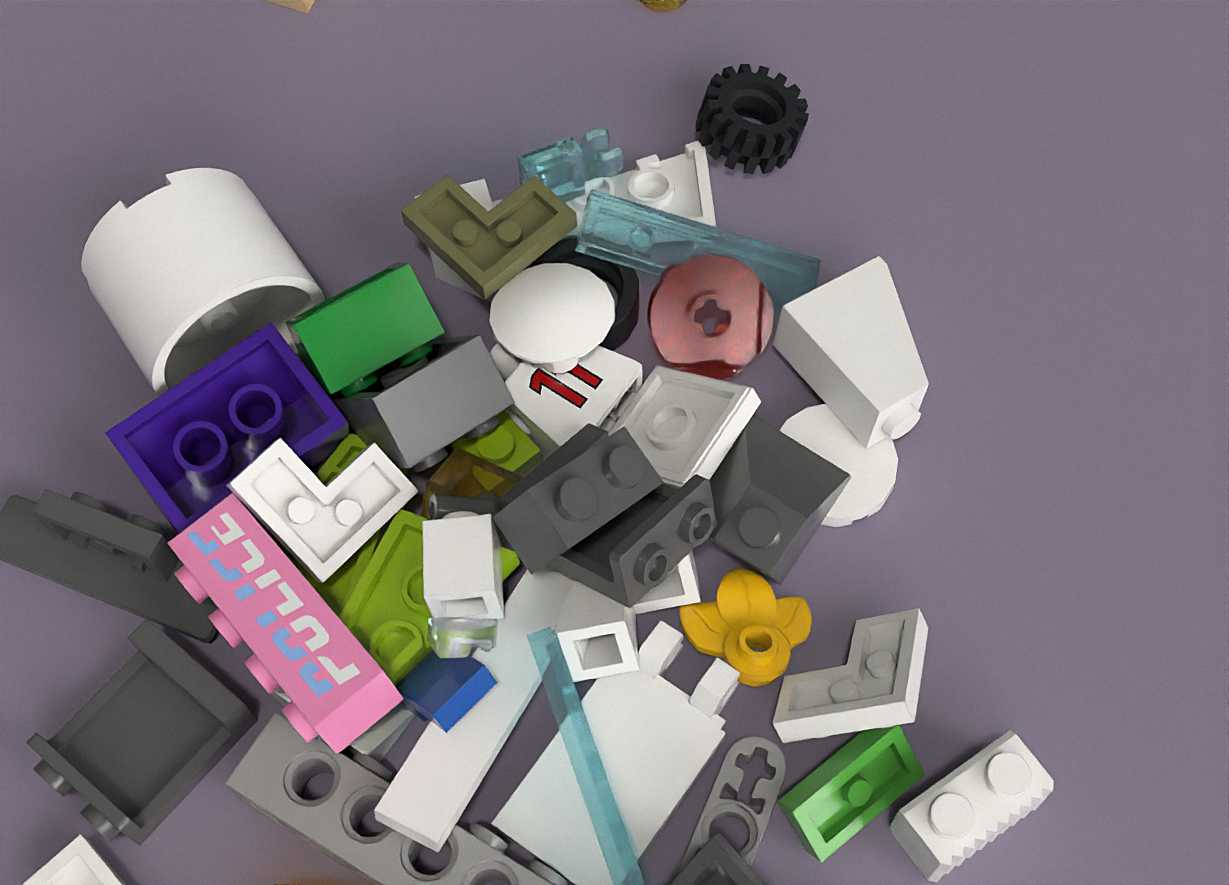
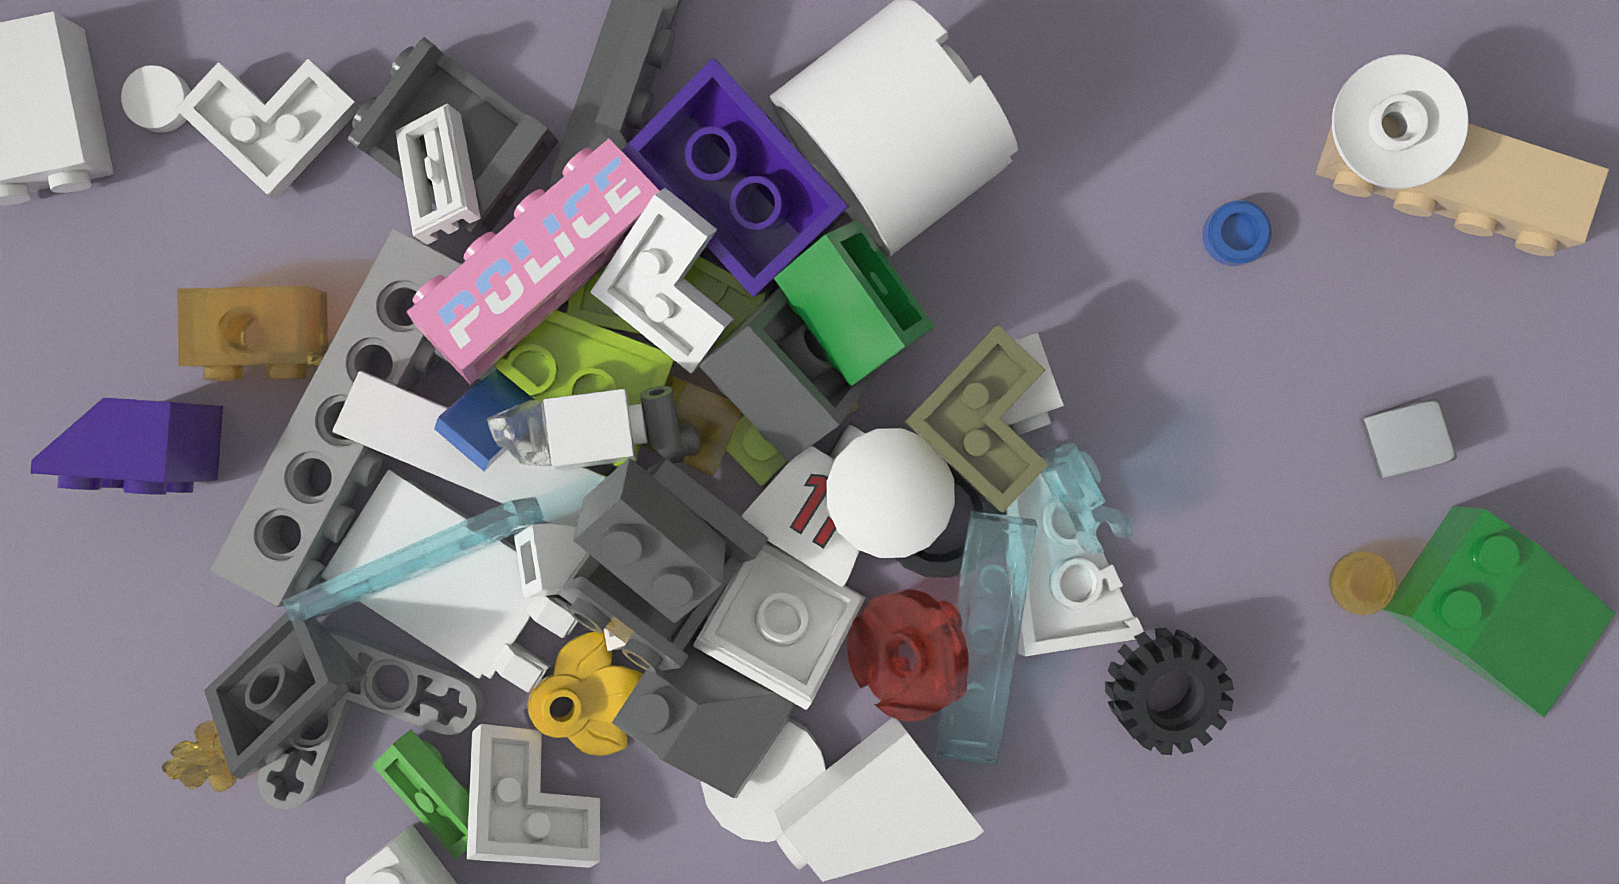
camera: 85 degrees right, 25 degrees up
(220, 721) = (447, 168): none -> white tile
(349, 66) = (1237, 233): none -> blue tile

